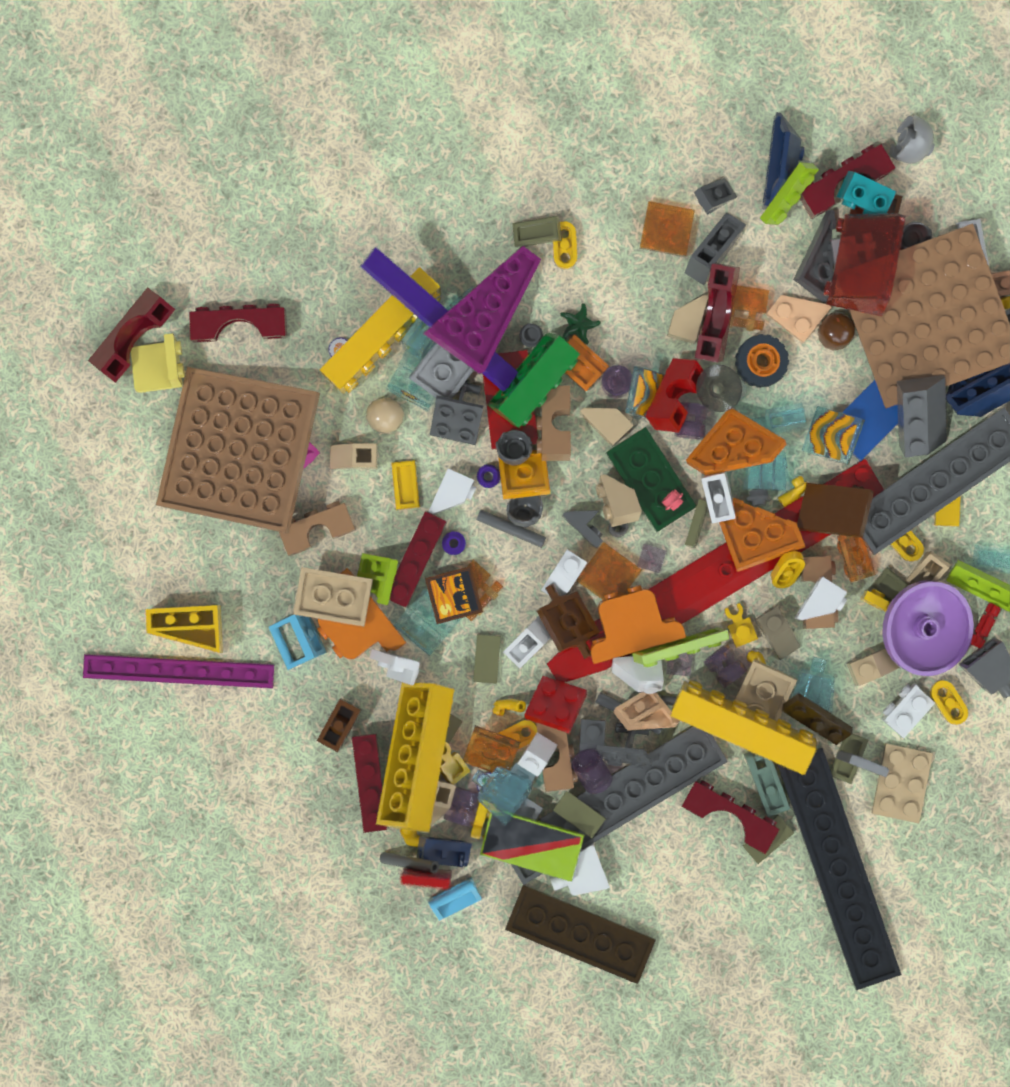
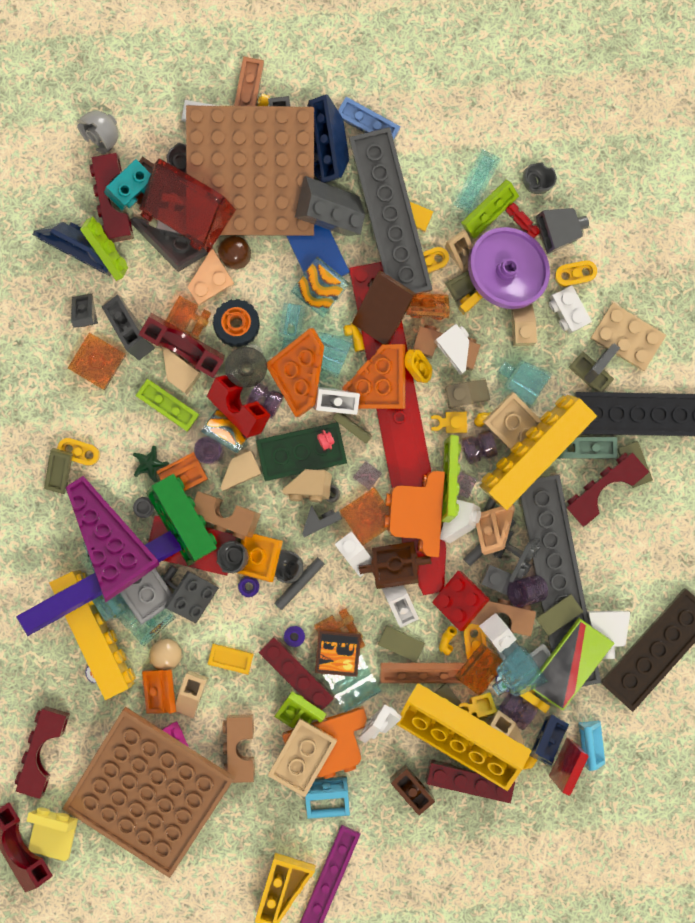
camera: 70 degrees left, 0 degrees up
(345, 422) = (159, 691): none -> orange plate
(409, 862) = (549, 773): dark grey piece -> none
(452, 492) = (251, 622): white slope -> none
(464, 689) = (419, 672): none -> nougat plate
(648, 320) = (167, 405): none -> lime plate
(758, 497) = (349, 367): dark grey plate -> none
(817, 719) = (551, 387): dark brown plate -> none

